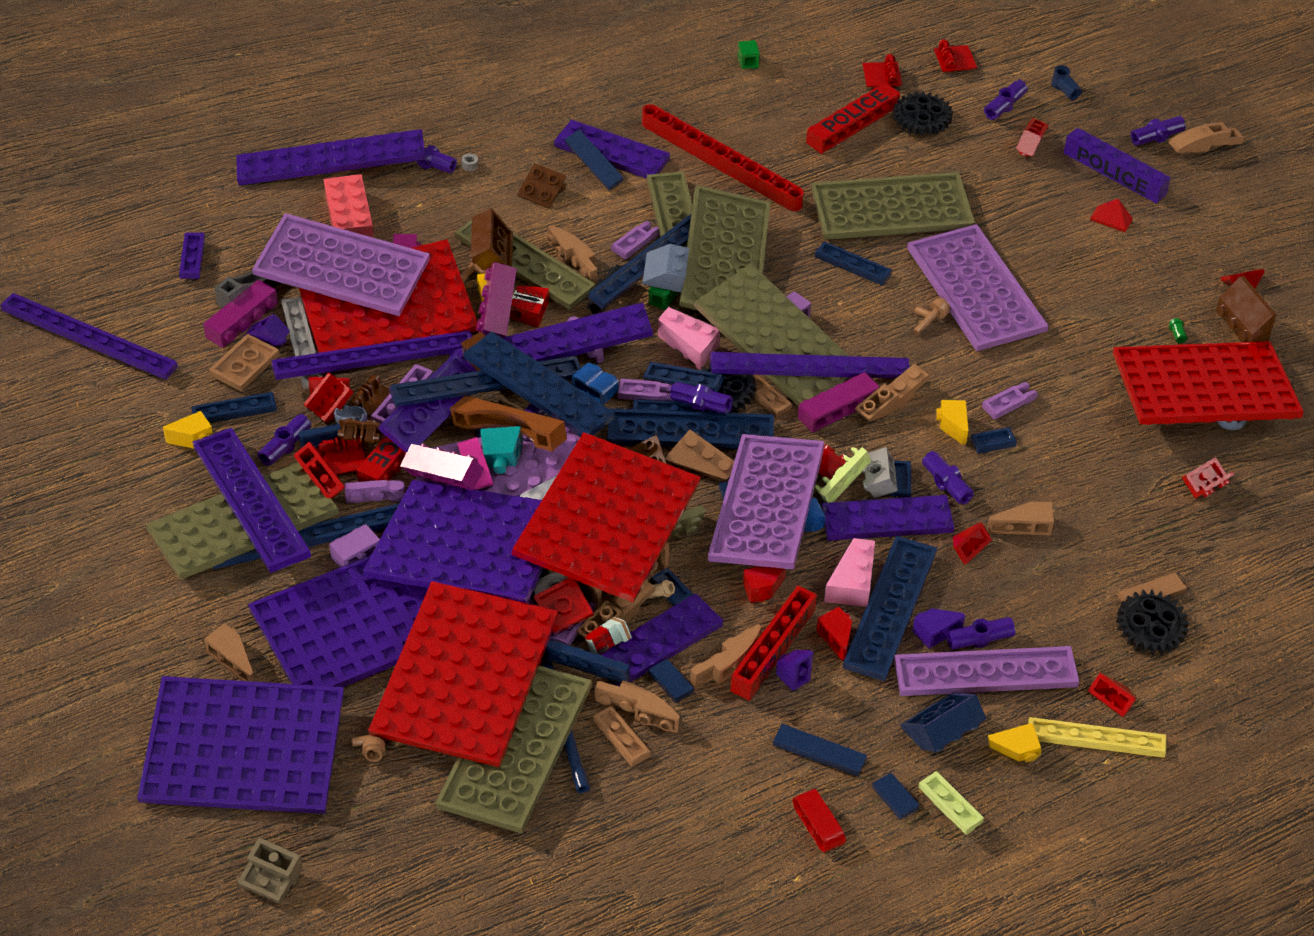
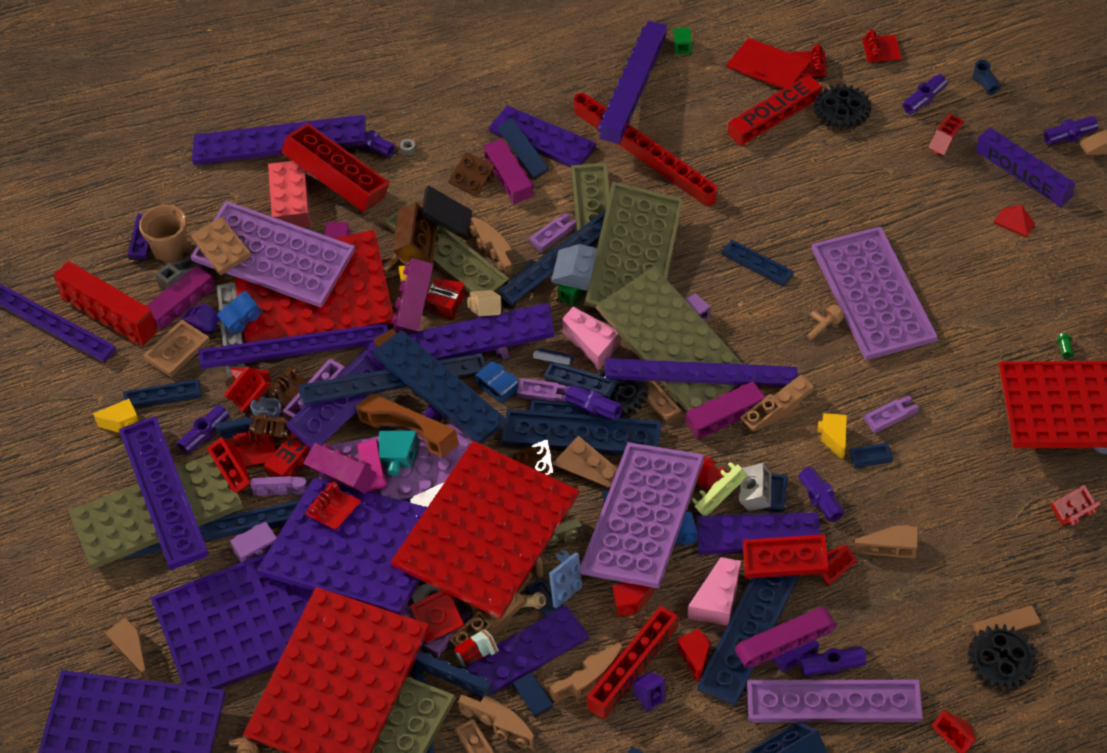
camera: 10 degrees right, 5 degrees up
(162, 319) = (105, 303): none -> red brick
(221, 247) = (165, 232): none -> medium nougat piece
(285, 257) = (221, 245): none -> medium nougat plate
(312, 323) = (239, 313): none -> blue brick
(397, 179) = (335, 167): none -> red brick
(439, 503) = (332, 506): none -> red hinge
(522, 221) = (446, 212): none -> black tile
(574, 306) = (484, 303): none -> tan brick
(581, 182) = (508, 171): none -> magenta brick
(652, 357) = (553, 356): none -> dark blue tile
(694, 564) = (565, 578): none -> medium blue plate
(702, 93) = (632, 82): none -> dark purple brick
(840, 74) = (768, 63): none -> red container
(891, 205) = (801, 203): olive plate -> none
(920, 535) = (785, 556): none -> red plate
(930, 609) = (785, 637): none -> magenta beam

